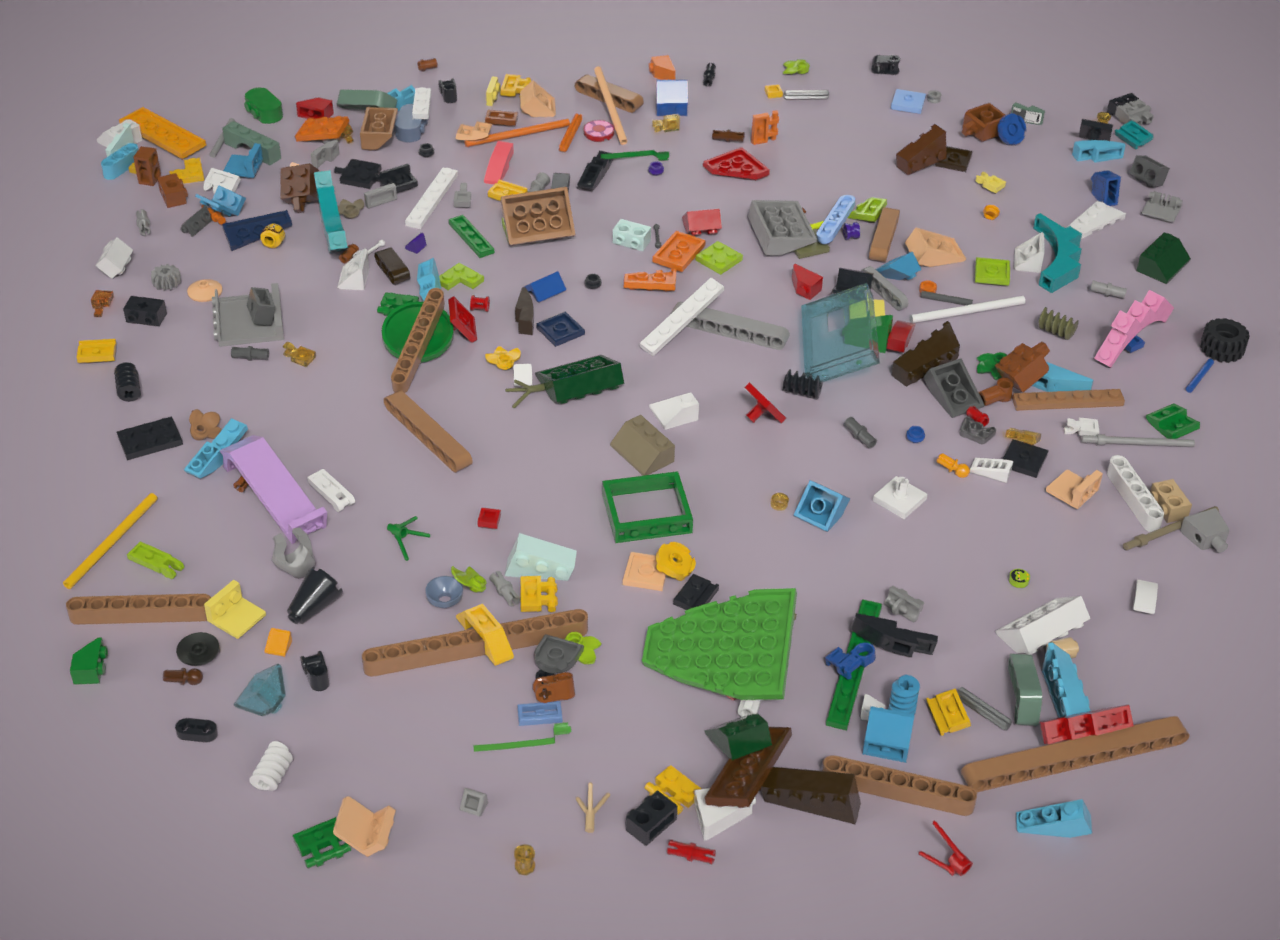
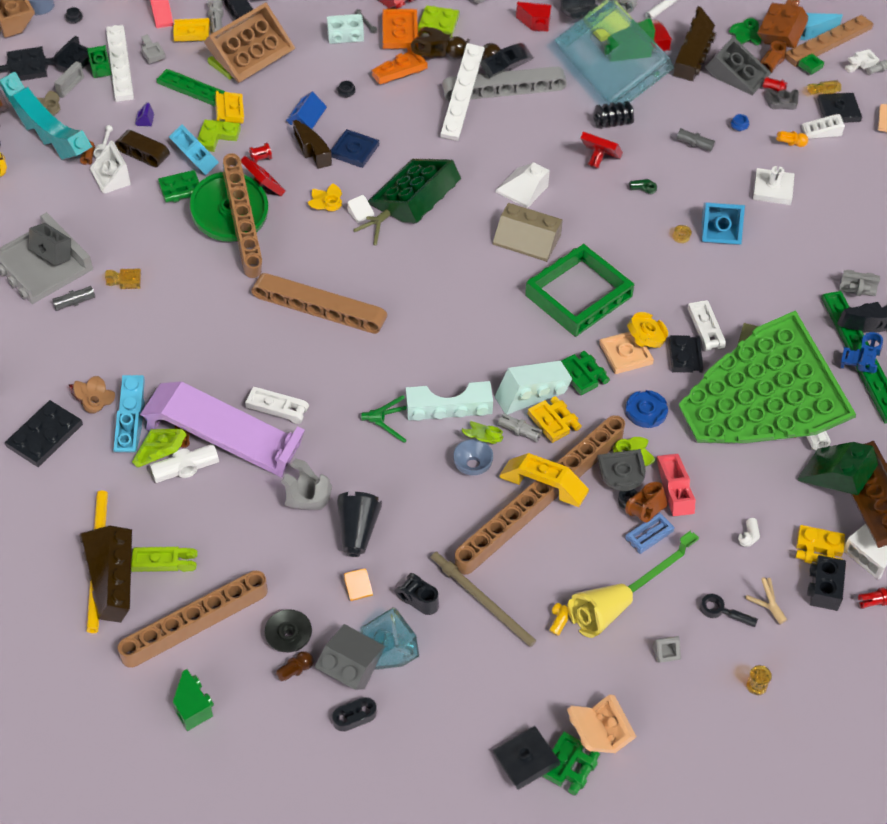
camera: 30 degrees left, 10 degrees up
(112, 543) = (109, 564): none -> dark brown wedge
(219, 479) = (158, 445): none -> lime wing
(221, 686) = (350, 657): none -> dark grey slope
(227, 500) = (184, 463): none -> white piece
(232, 612) = (292, 576): light yellow bracket -> none
(272, 767) = (463, 713): white piece -> none
(290, 820) = (526, 757): none -> black plate
(357, 667) = (451, 570): none -> dark tan bar
(413, 189) = (99, 61): none -> green slope
(413, 736) = (561, 619): none -> yellow arm
(445, 743) = (598, 608): none -> light yellow cone
(484, 552) = (426, 405): none -> light aqua arch
(485, 260) = (229, 107): none -> yellow plate
(489, 518) = (449, 364): red plate -> none
(546, 796) = (734, 614): none -> black piece
(587, 570) = (582, 378): none -> green plate
(592, 687) = (676, 485): none -> coral slope
(623, 621) = (646, 409): none -> blue tile
(623, 754) = (752, 533): none -> white arm
(699, 273) = (441, 44): none -> dark brown piece
(732, 578) = (706, 325): none -> white plate
(744, 303) = (506, 58): none -> black slope
(781, 450) = (645, 185): none -> dark green arm
(1029, 412) = (811, 64): none -> green plate

